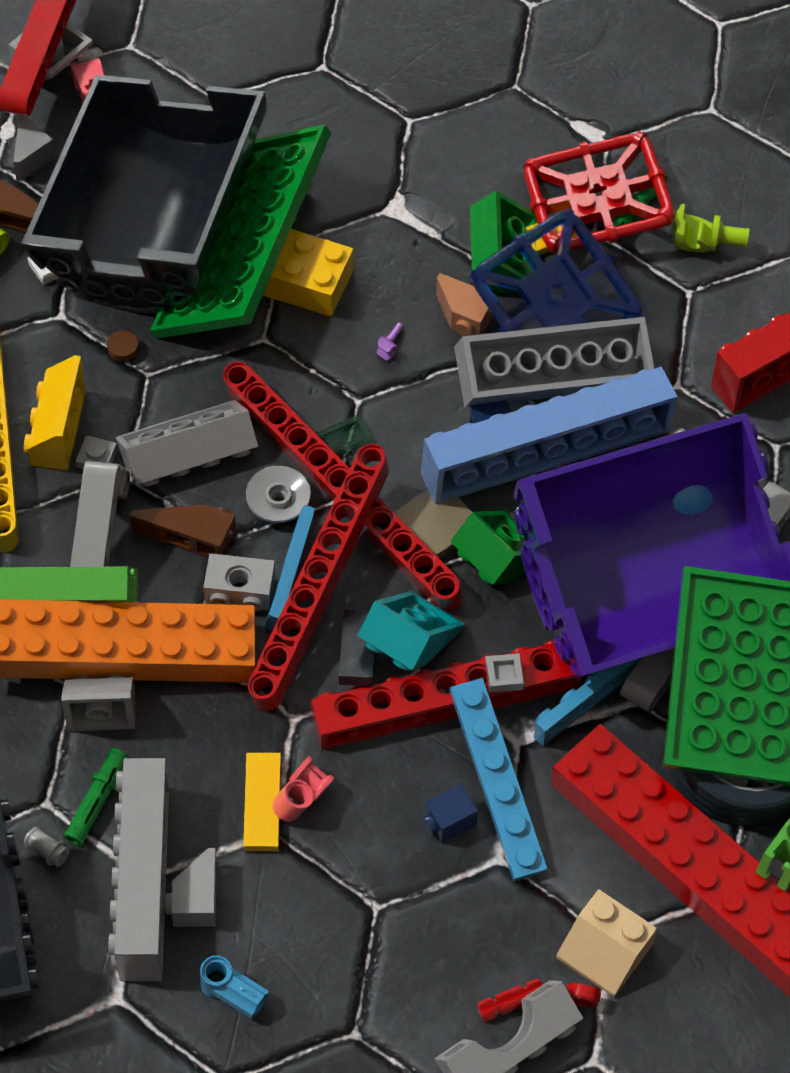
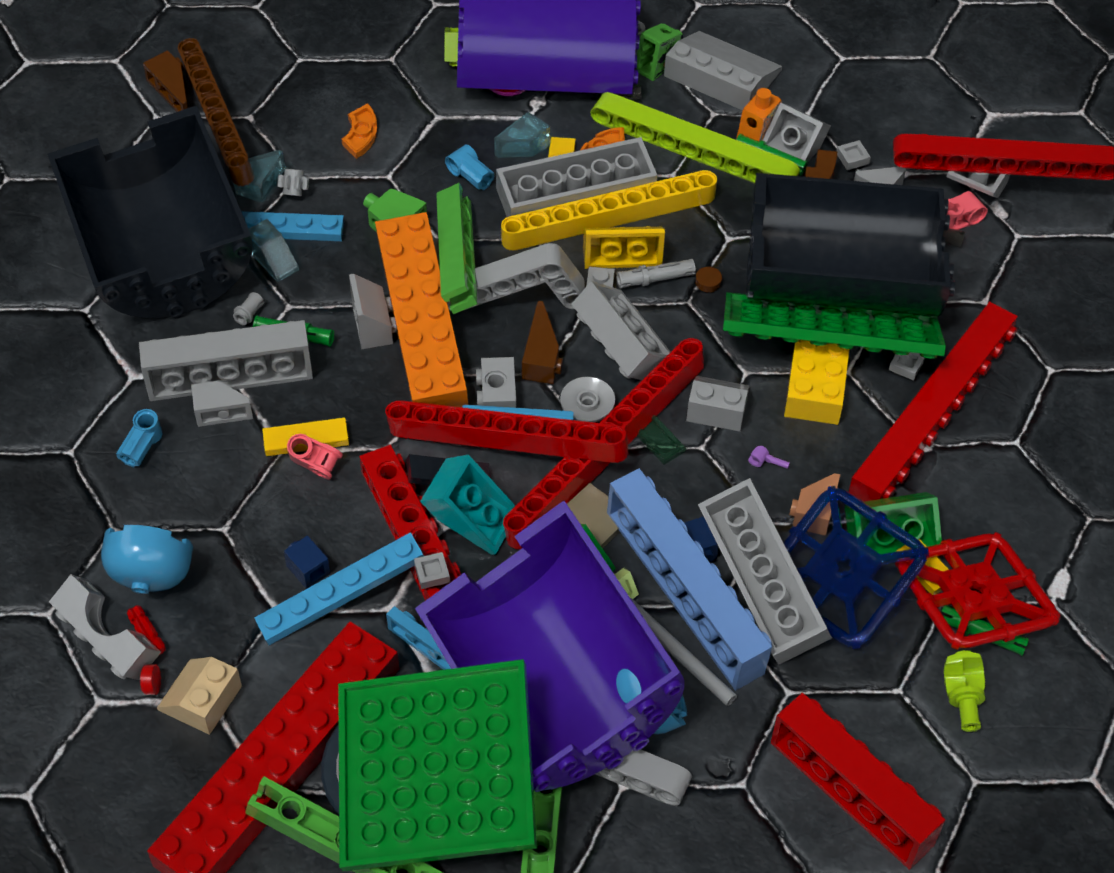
camera: 80 degrees right, 5 degrees down
(103, 404) = (646, 275): none -> light grey pin
(306, 367) = (717, 403): none -> light grey slope
(367, 182) = (934, 404): none -> red brick
(436, 977) = (145, 558): none -> dark azure cylinder

